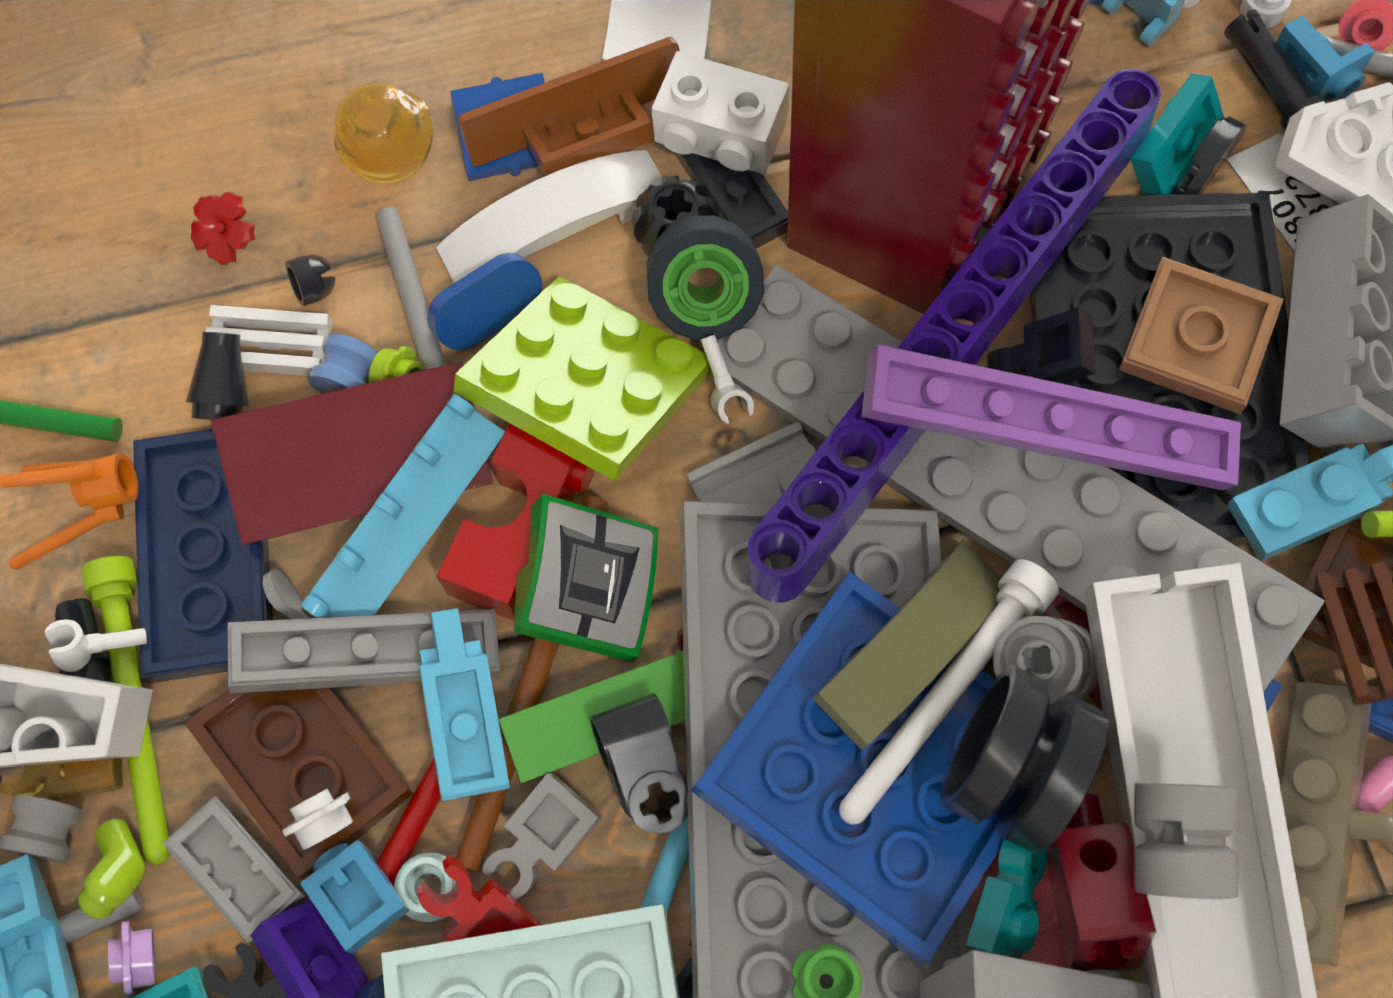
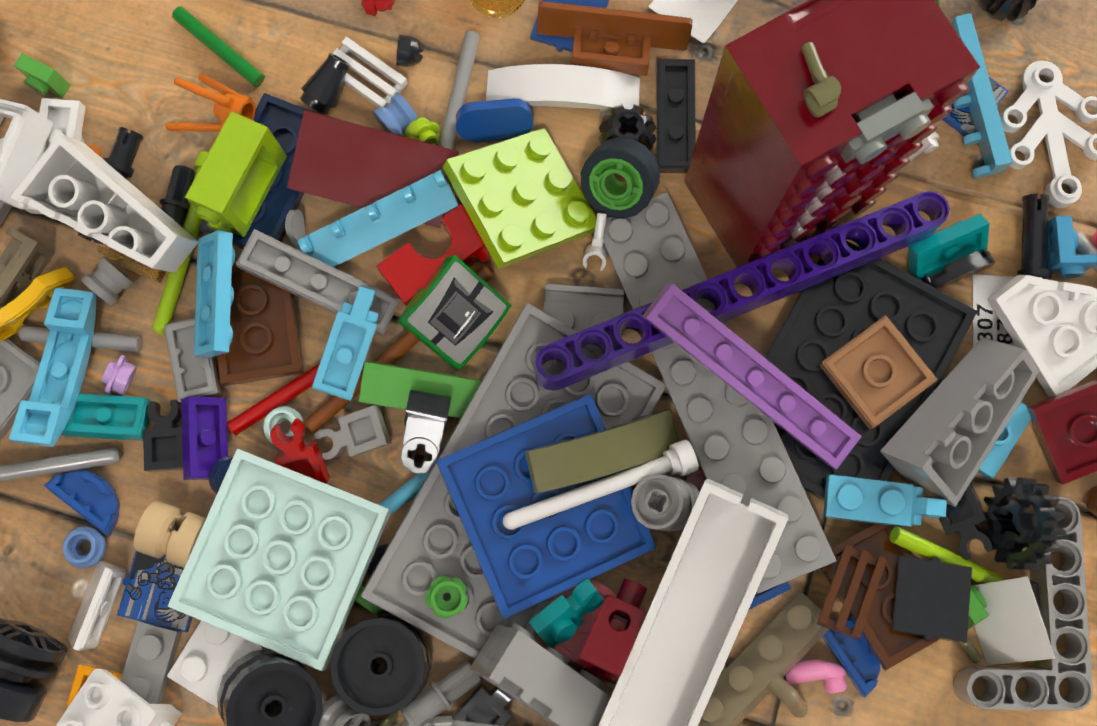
camera: 30 degrees right, 10 degrees up
(75, 649) = (171, 199): white hand -> none
(115, 874) = (132, 327): lime arm -> none
(160, 561) = (236, 175): none -> lime window
(218, 751) = (214, 294): none -> medium azure plate
(318, 818) = (244, 360): white plate -> none
(353, 895) = (242, 409): dark azure bracket -> none
(720, 113) = (684, 78): white brick -> none
(1025, 760) = (612, 550): black wheel -> none
(1052, 350) = (785, 334): black plate -> none
(1189, 868) = (658, 647): light grey wheel -> none

